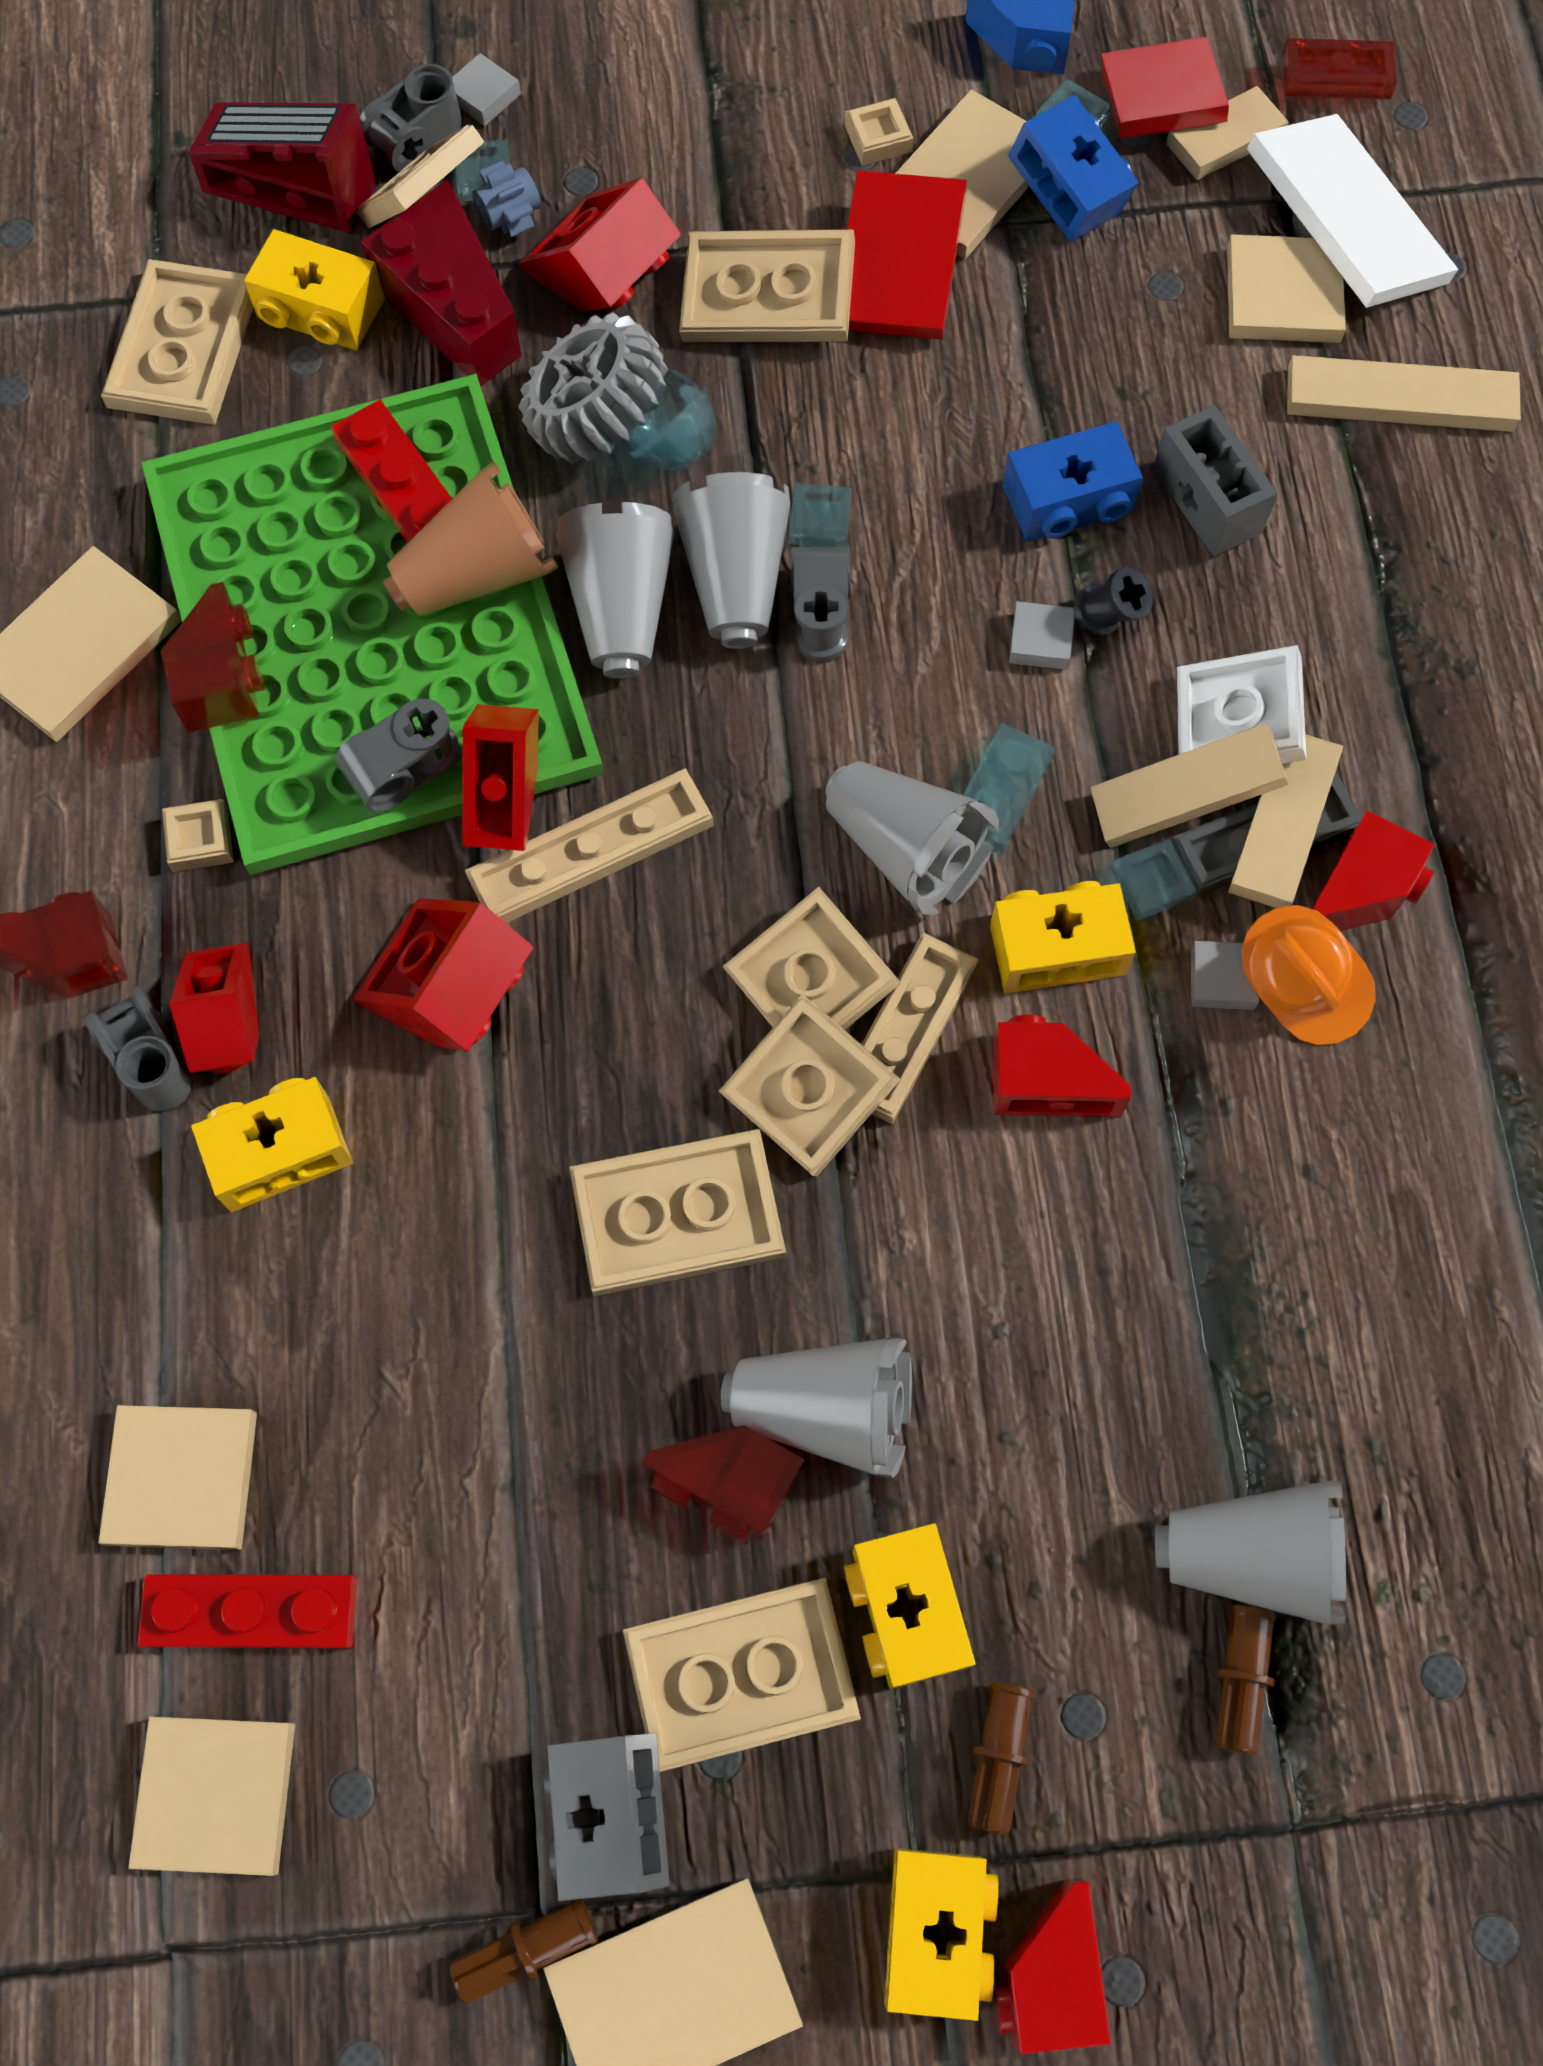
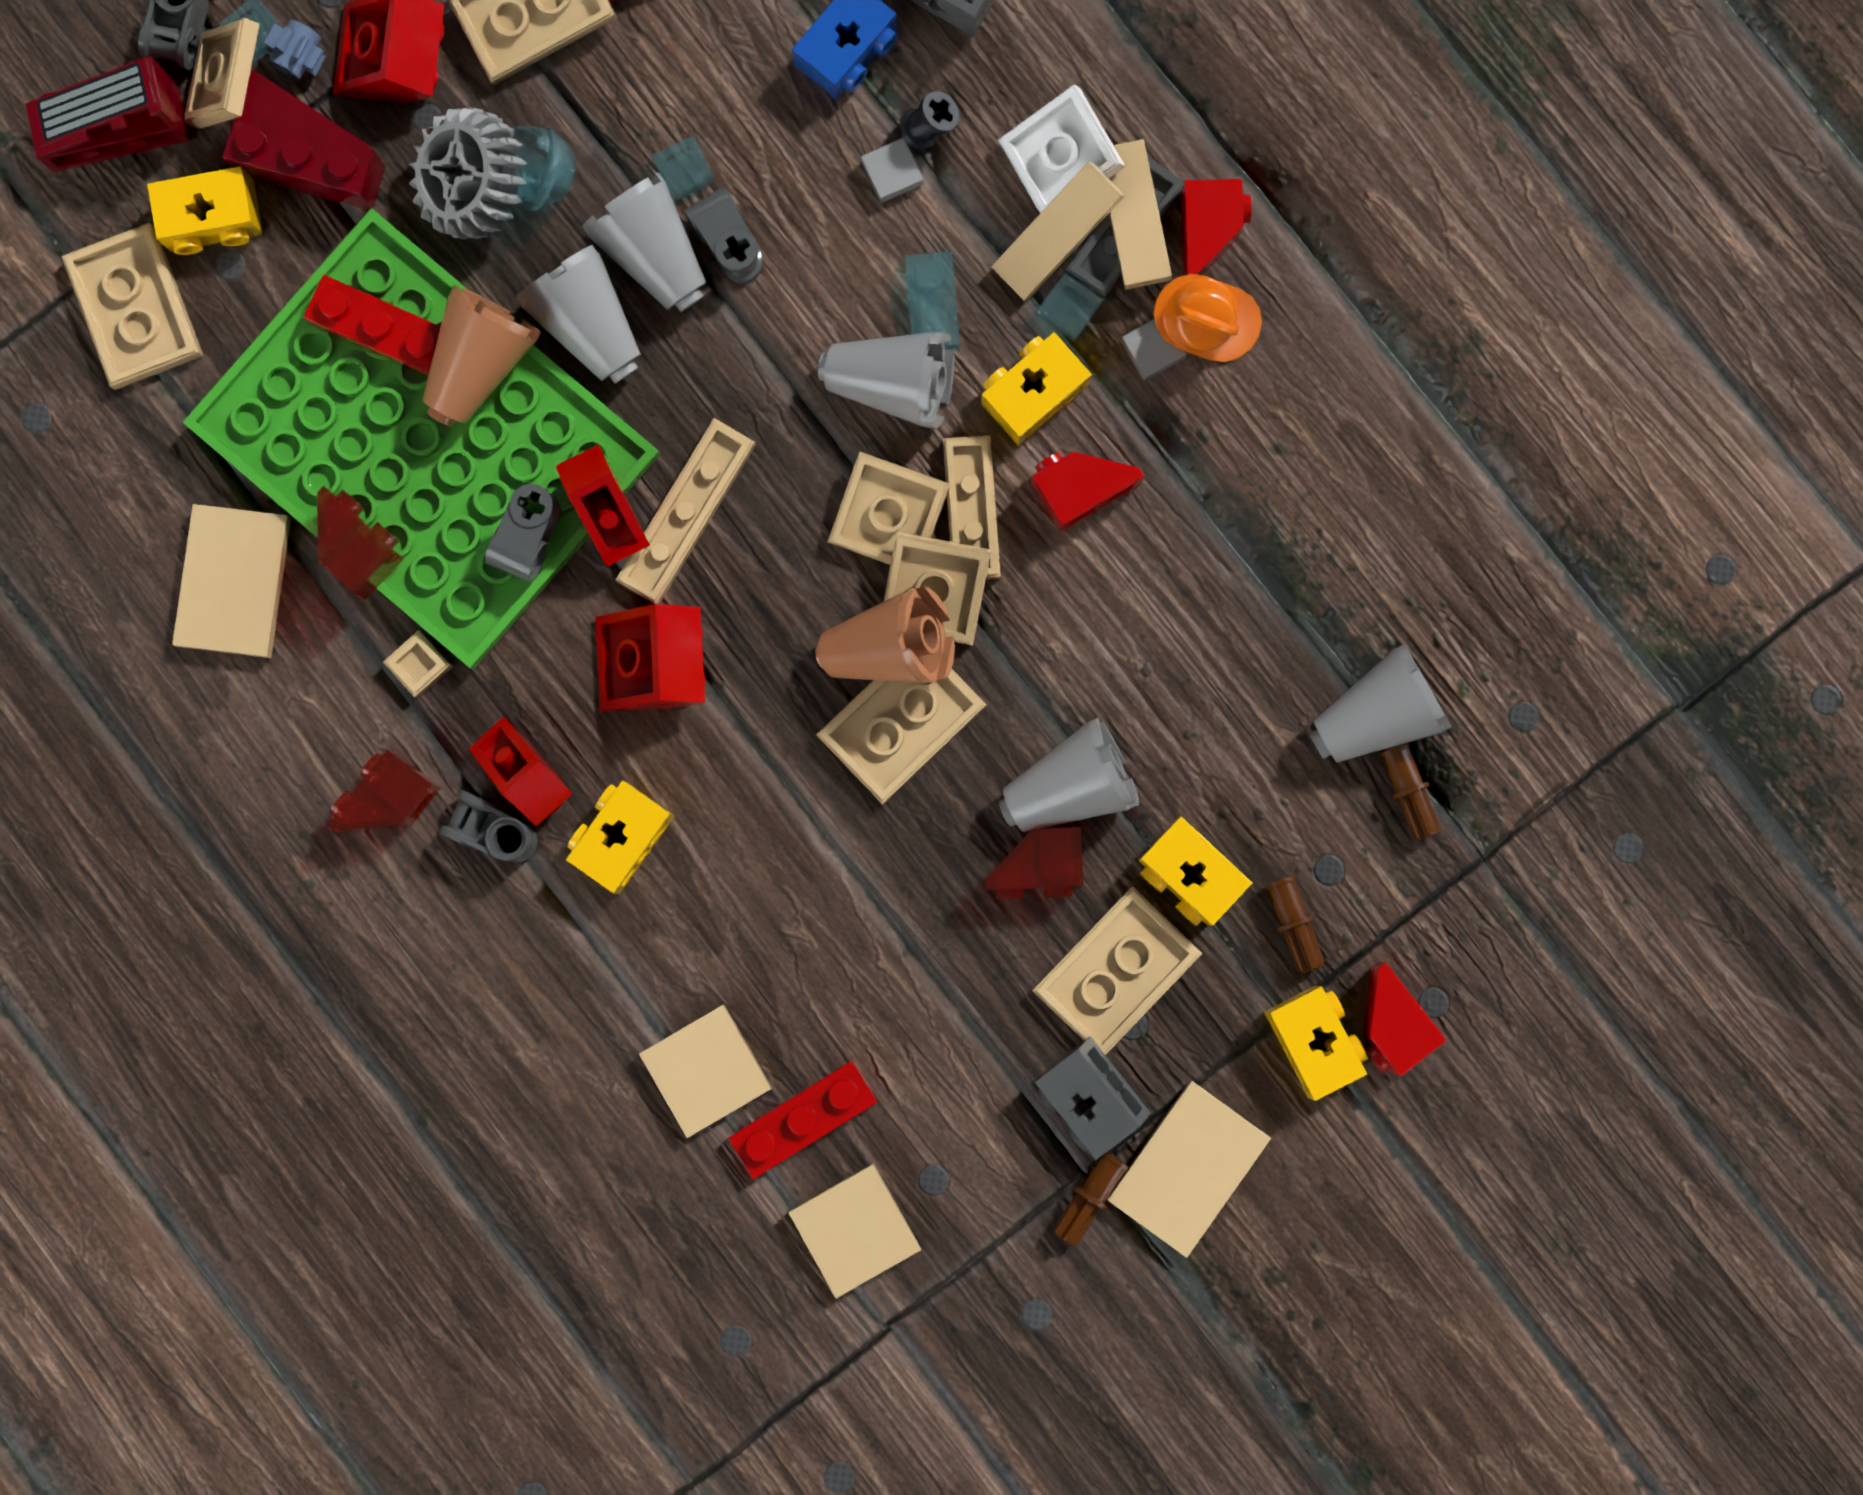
camera: 30 degrees left, 15 degrees up
(722, 1106) = (891, 641): none -> nougat cone

